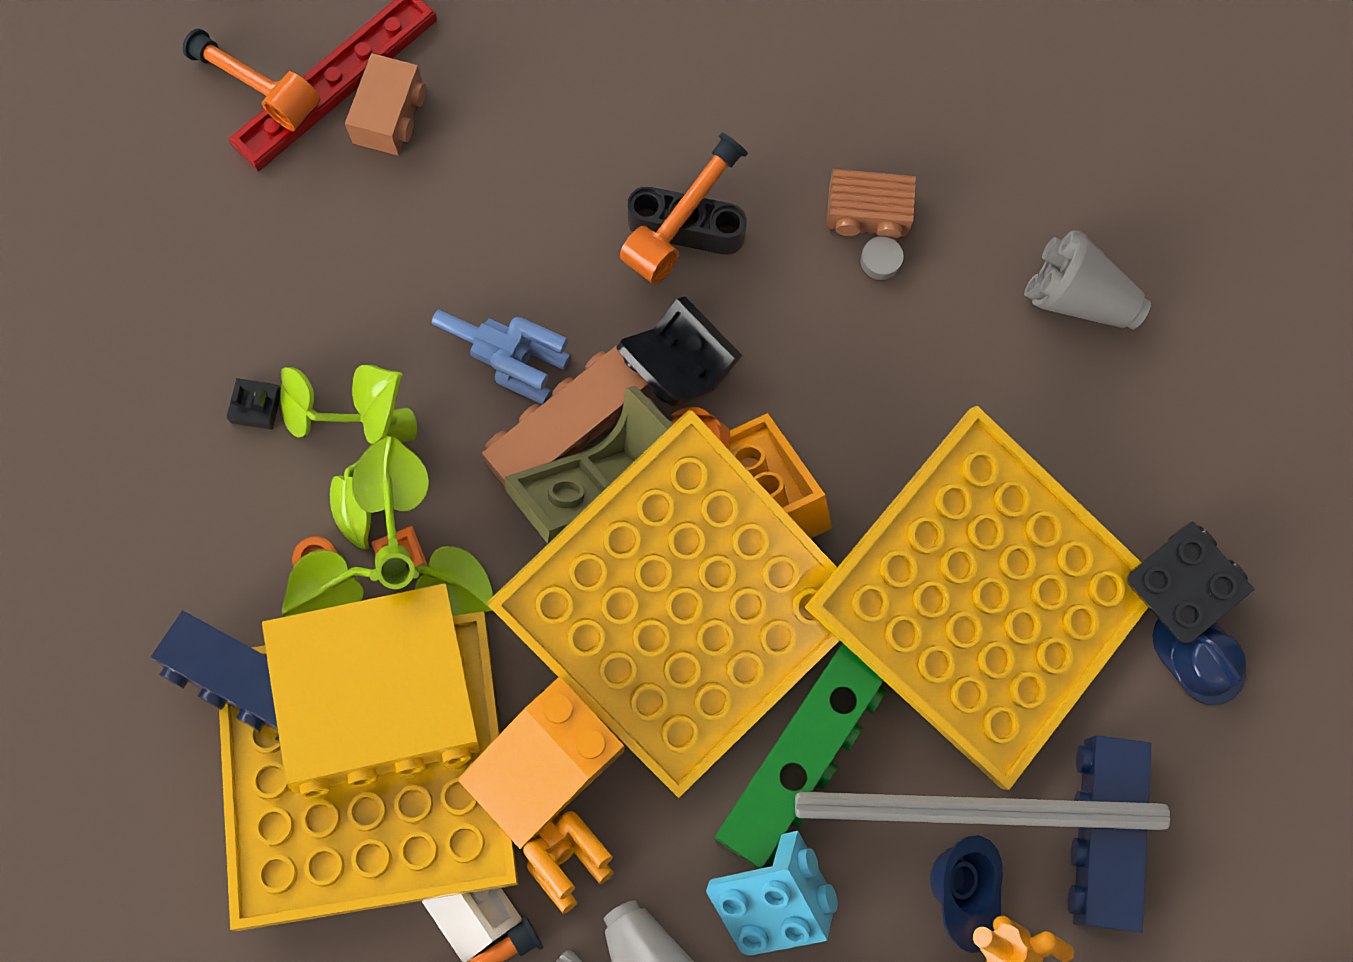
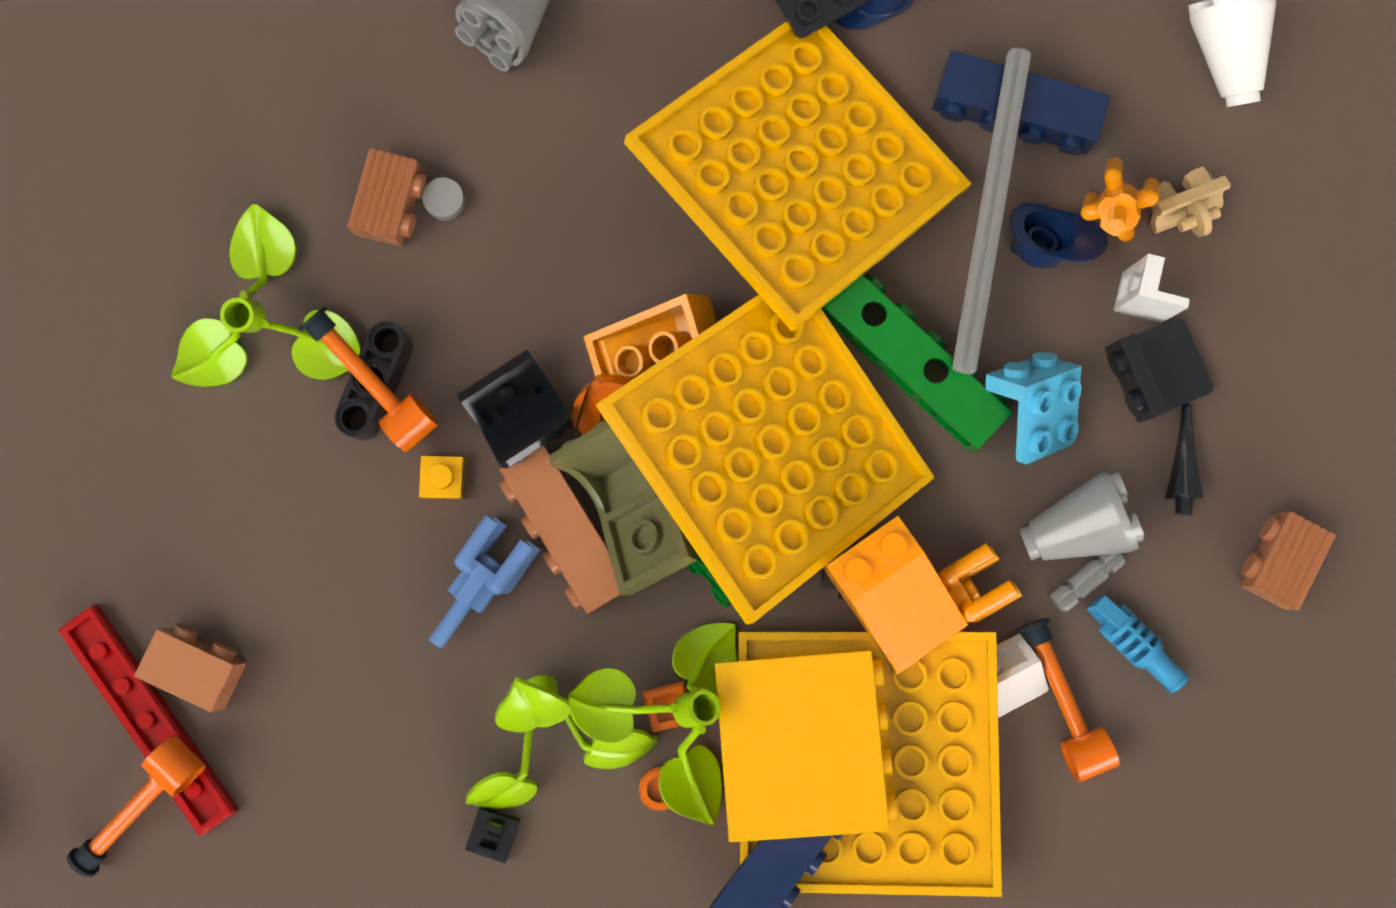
camera: 80 degrees left, 10 degrees up
(602, 300) = (442, 477): none -> yellow plate
(691, 71) = (209, 346): none -> lime plant

